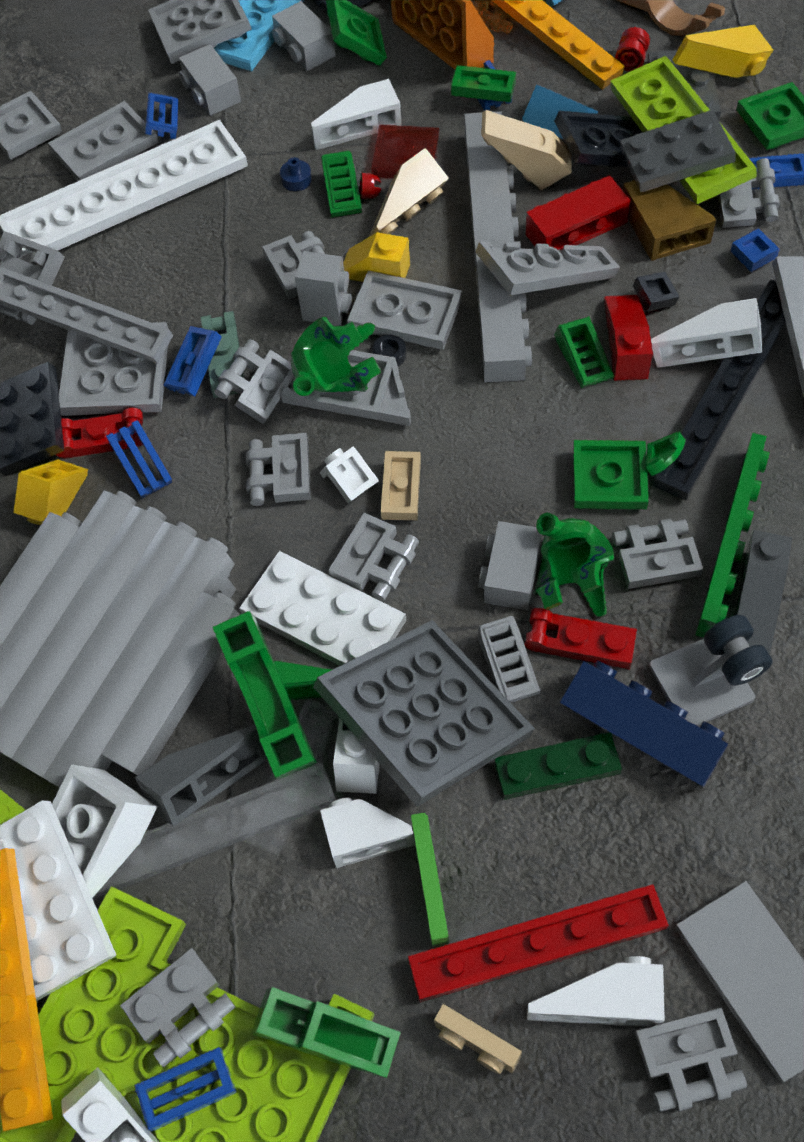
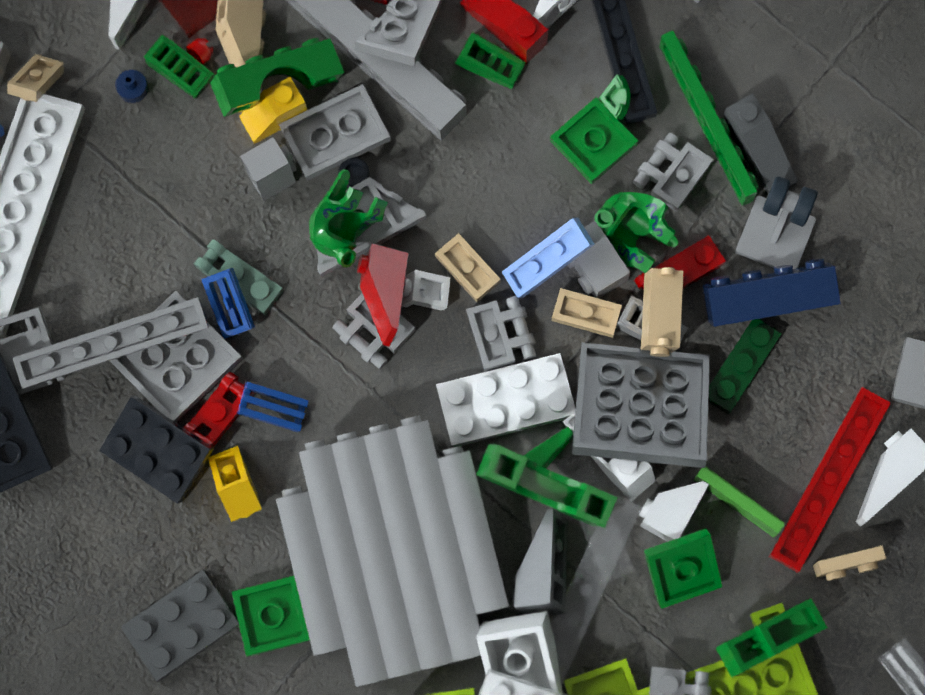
camera: 45 degrees left, 15 degrees up
(232, 116) = (35, 78): none -> tan plate
(264, 389) = (300, 275): light grey plate -> none
(285, 257) = (215, 167): light grey plate -> none
(314, 888) = (683, 568): none -> green plate
(319, 435) = (383, 287): none -> slope
(364, 211) = (311, 65): none -> green arch
(461, 600) = (586, 312): none -> tan plate
(471, 524) = (548, 257): none -> light blue plate
(523, 646) = (662, 311): none -> tan brick

